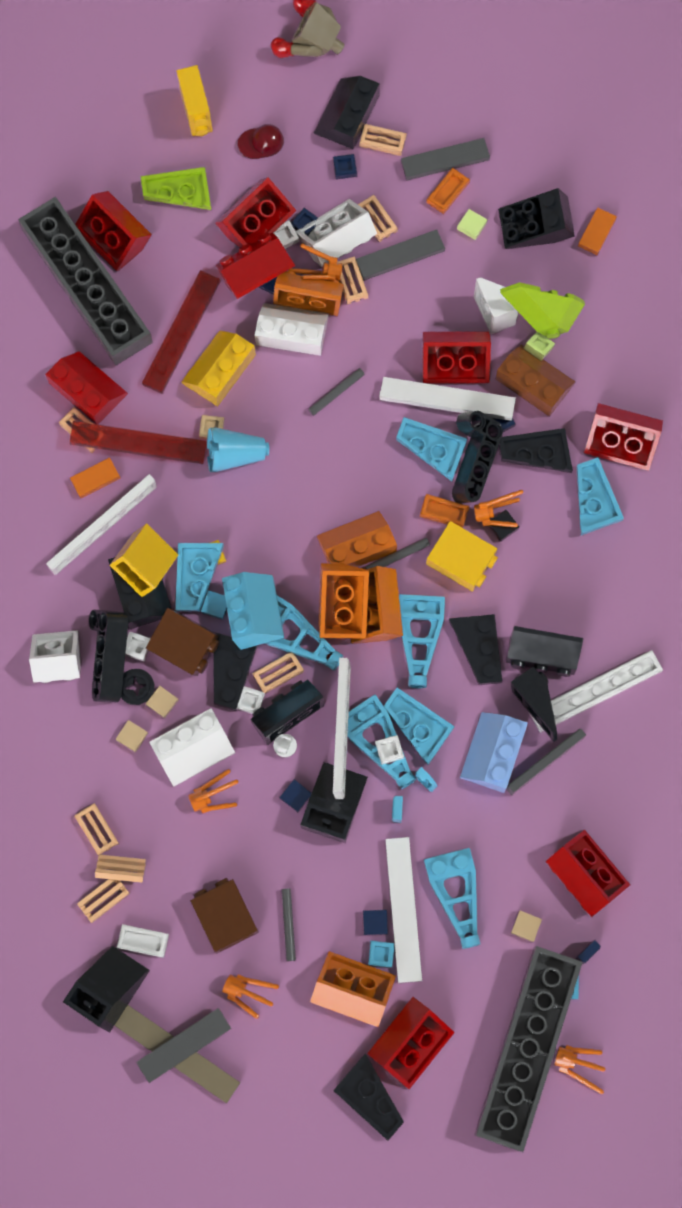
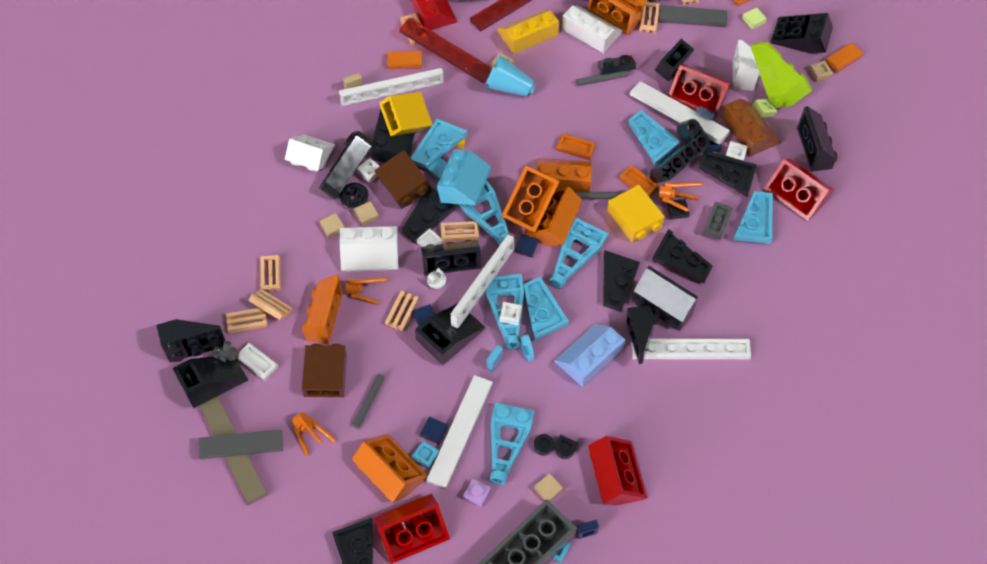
camera: 25 degrees right, 15 degrees down
(51, 961) = (188, 338): none -> black slope
(54, 541) = (352, 81): none -> tan tile
(106, 950) = (226, 352): none -> dark grey plant
(183, 848) = (323, 310): none -> orange slope
(266, 781) = (408, 297): none -> light nougat tile
(346, 367) = (619, 64): none -> black plate
(352, 499) = (576, 146): none -> orange tile
(361, 653) = (526, 245): none -> dark blue tile
(410, 332) = (676, 56): none -> black brick
(456, 969) = (477, 493): none -> lavender plate
(478, 385) = (706, 112): none -> dark blue tile
(497, 880) = (543, 444): none -> black tile
(520, 871) = (565, 447): none -> black tile
(534, 420) = (736, 150): none -> white plate
(535, 587) = (678, 257): none -> black wing
(546, 761) = (626, 377): dark grey tile -> none
(554, 520) = (717, 220): none -> dark grey plate
(578, 263) = (820, 71): none -> tan tile
(616, 365) = (816, 141): none -> black slope

